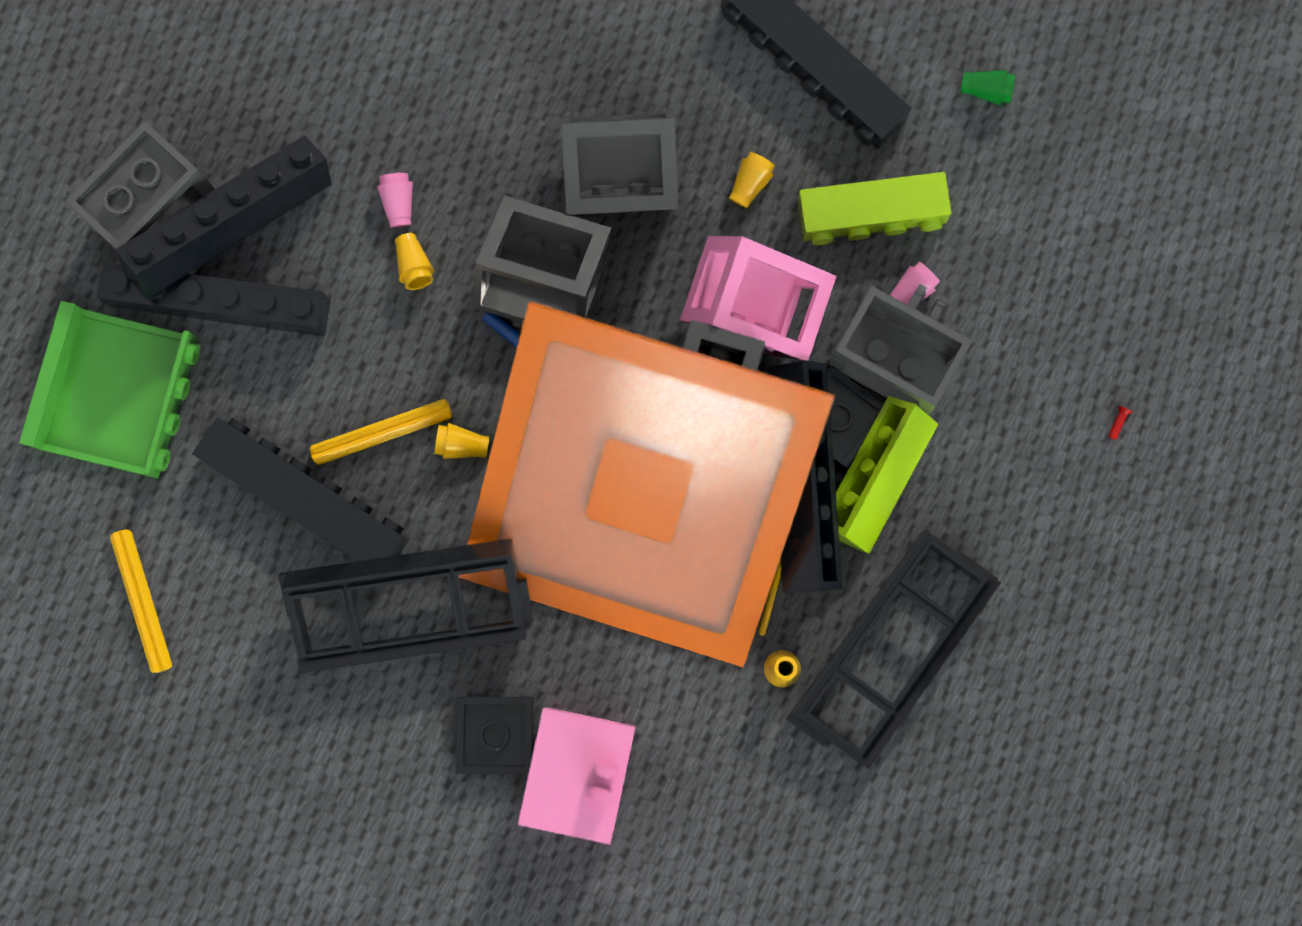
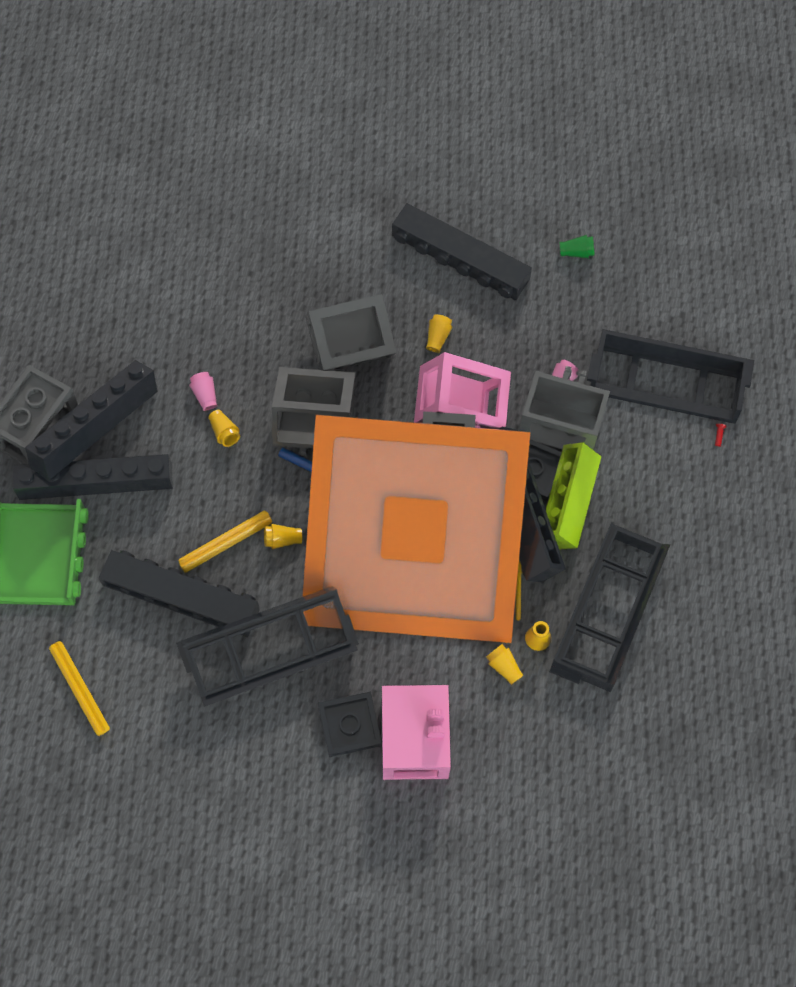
camera: 15 degrees left, 15 degrees down
(726, 696) = (504, 663): none -> yellow cone
(874, 207) = (523, 333): lime brick -> none
(1128, 308) = (676, 355): none -> black piece

